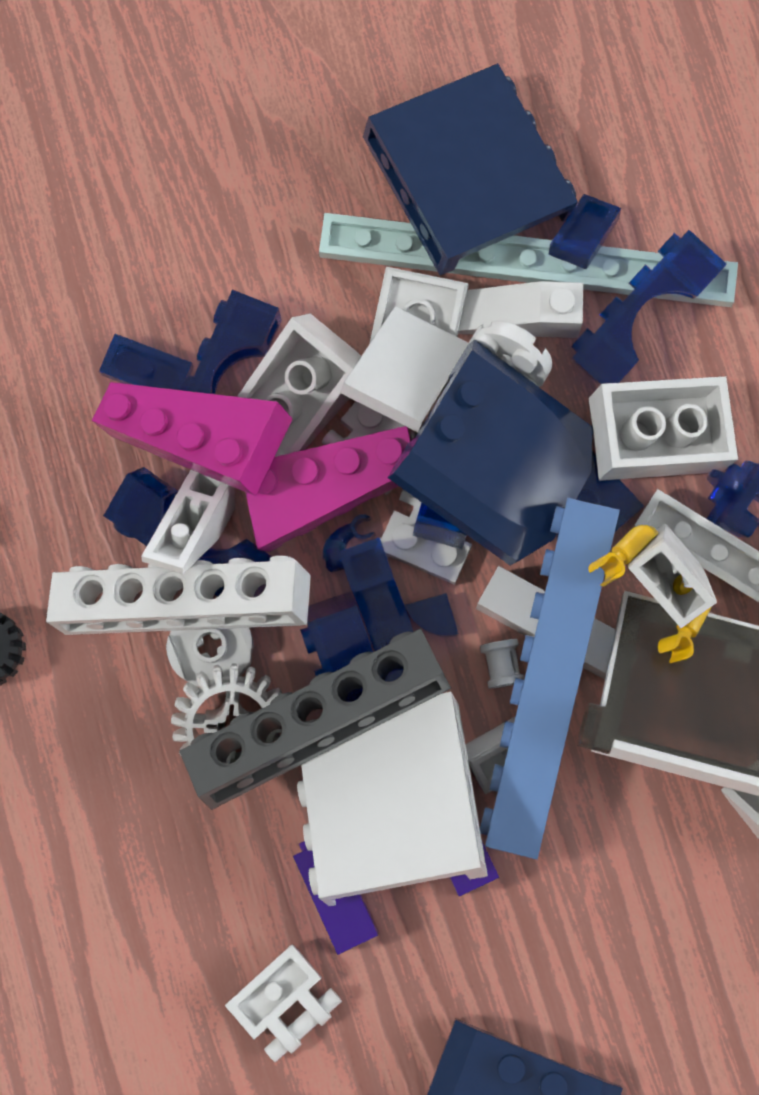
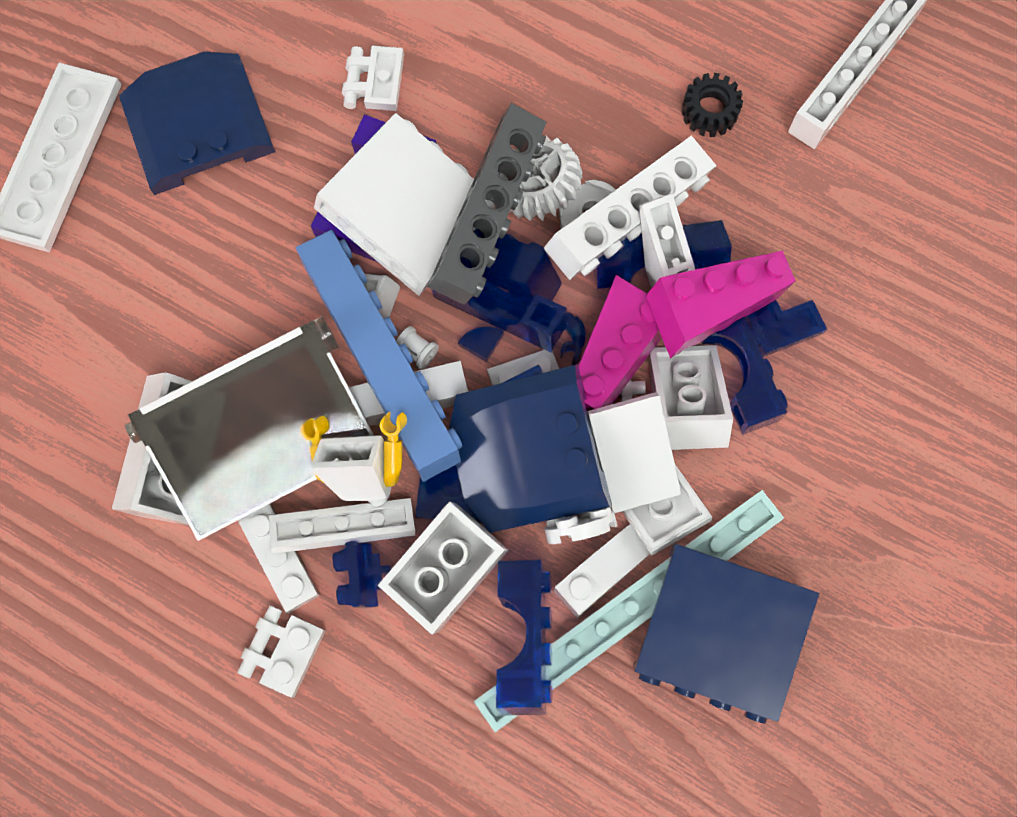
camera: 135 degrees right, 5 degrees down
(584, 231) = (612, 659): clear blue tile -> none

